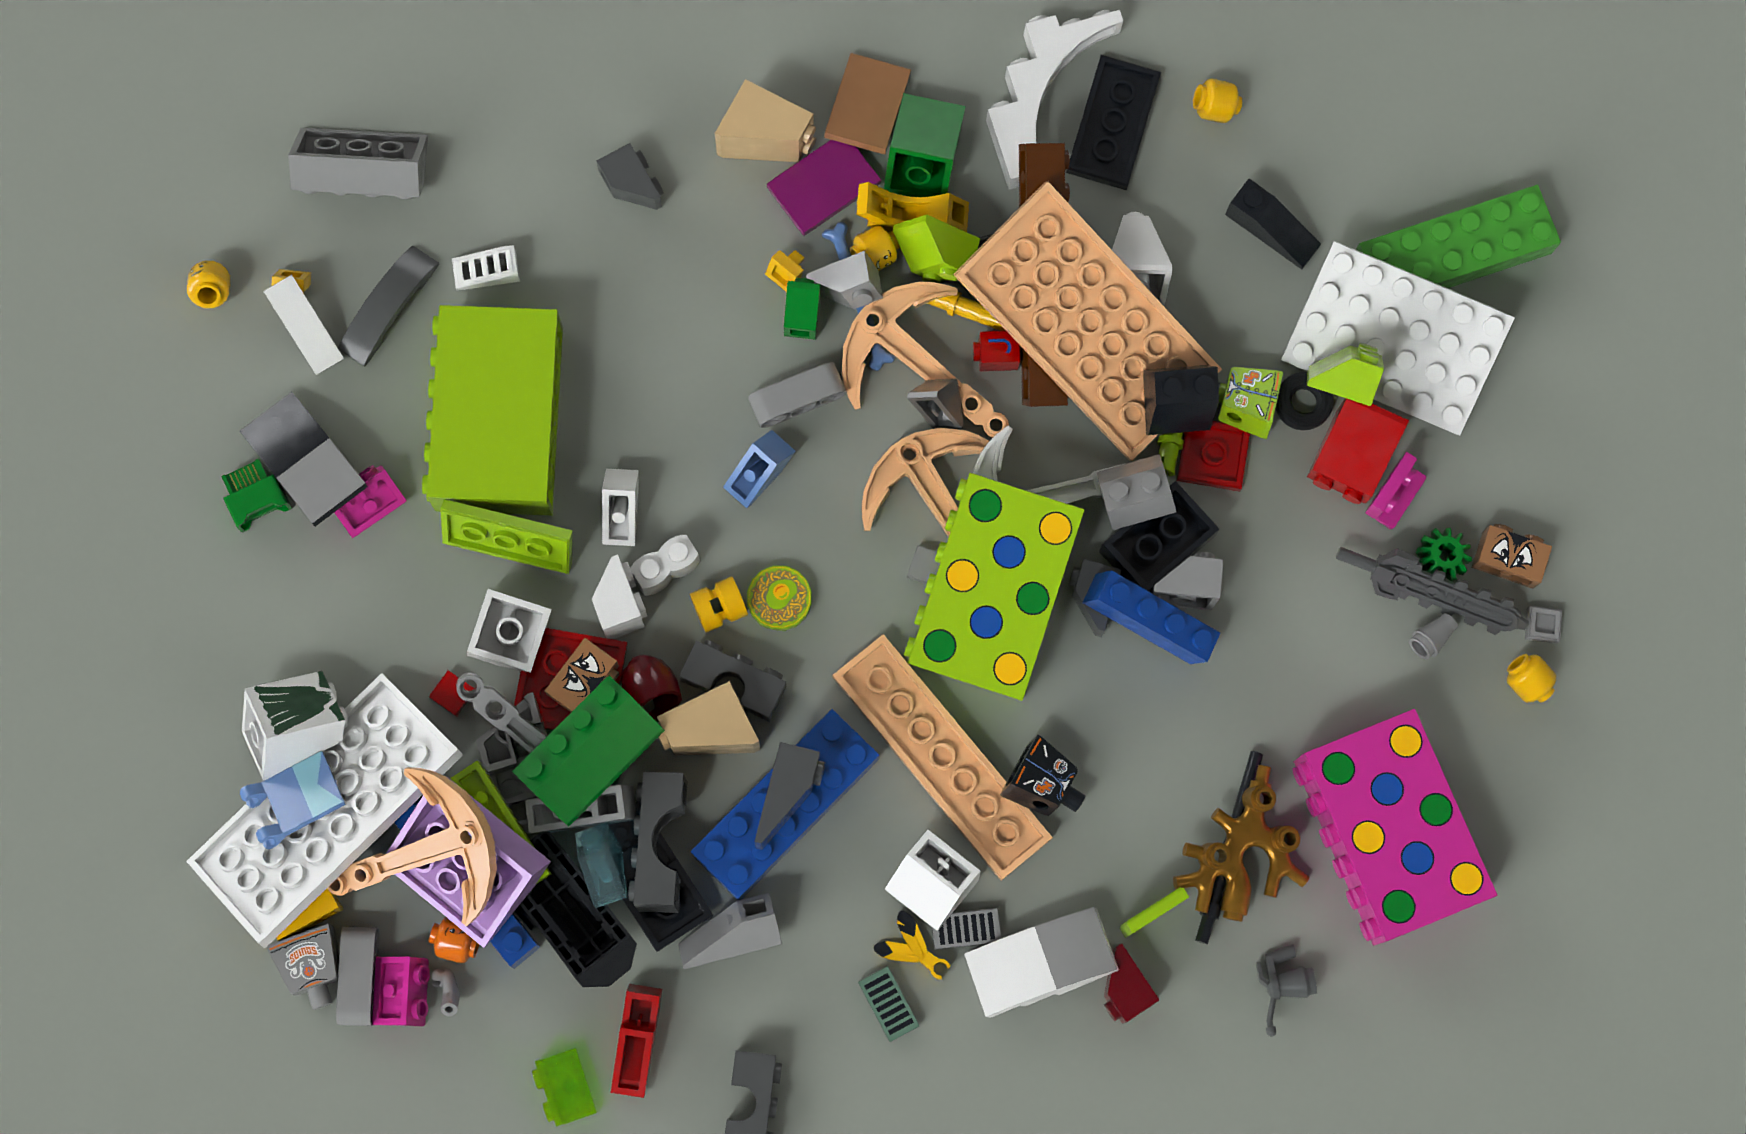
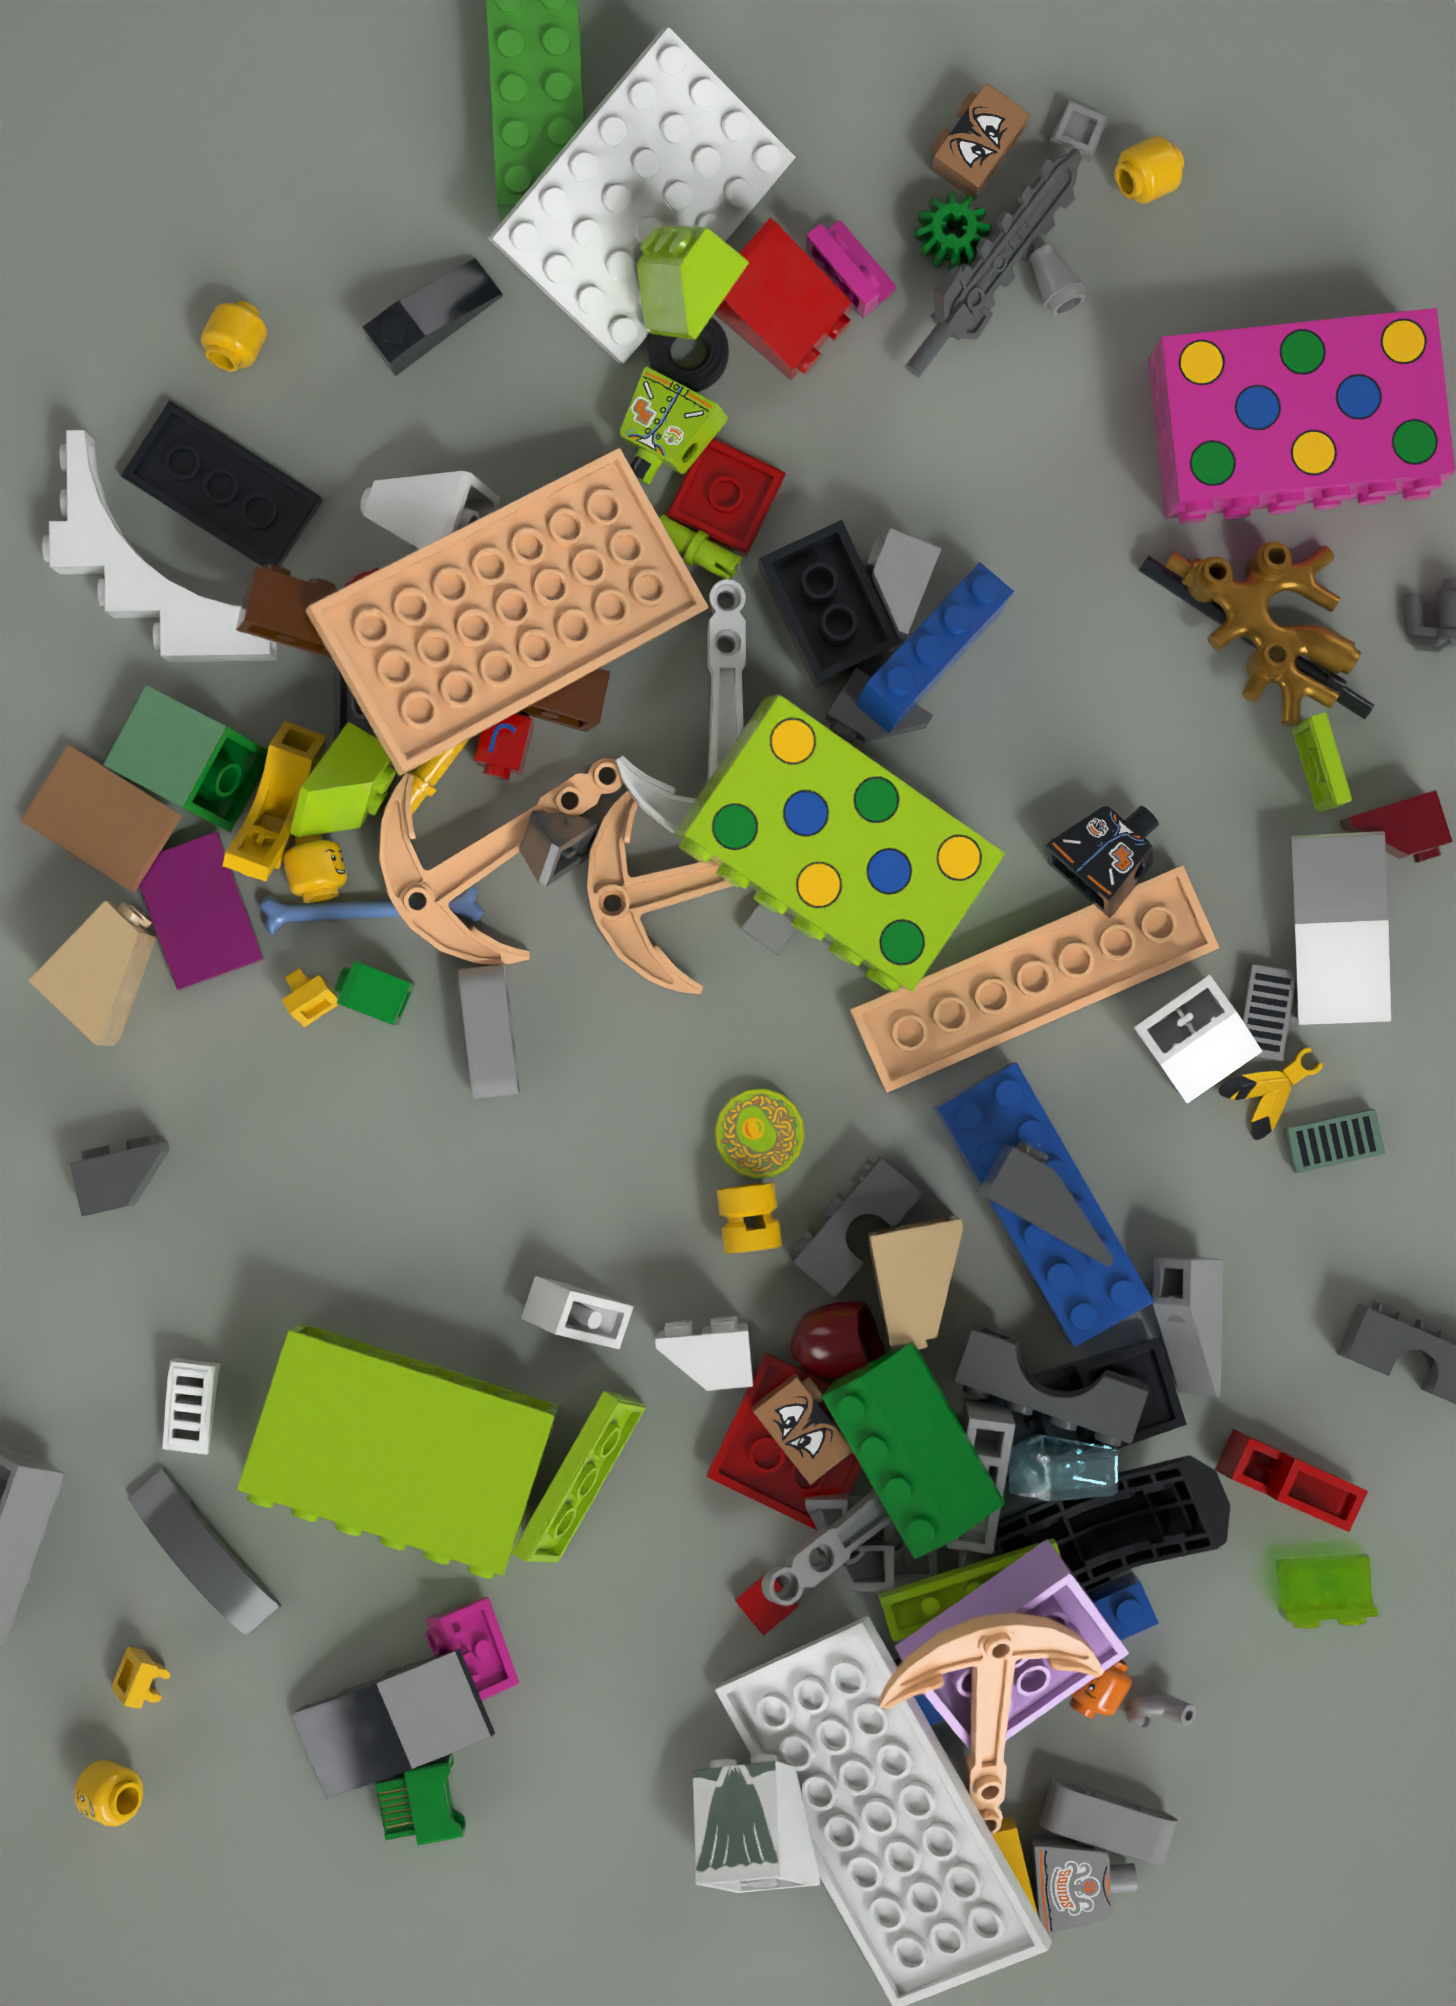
camera: 75 degrees left, 10 degrees up
(296, 796) = (857, 1844): medium blue flag -> none
(303, 324) = (203, 1677): white tile -> none
(400, 991) = (1143, 1770): dark pink bracket -> none
(508, 631) = (710, 1508): white slope -> none
(672, 561) = (680, 1288): white brick -> none
(759, 468) = (576, 1111): medium blue slope -> none
(849, 281) = (353, 916): light grey slope -> none
(1136, 492) = (759, 616): light grey slope -> none
(1180, 399) = (646, 516): black slope -> none

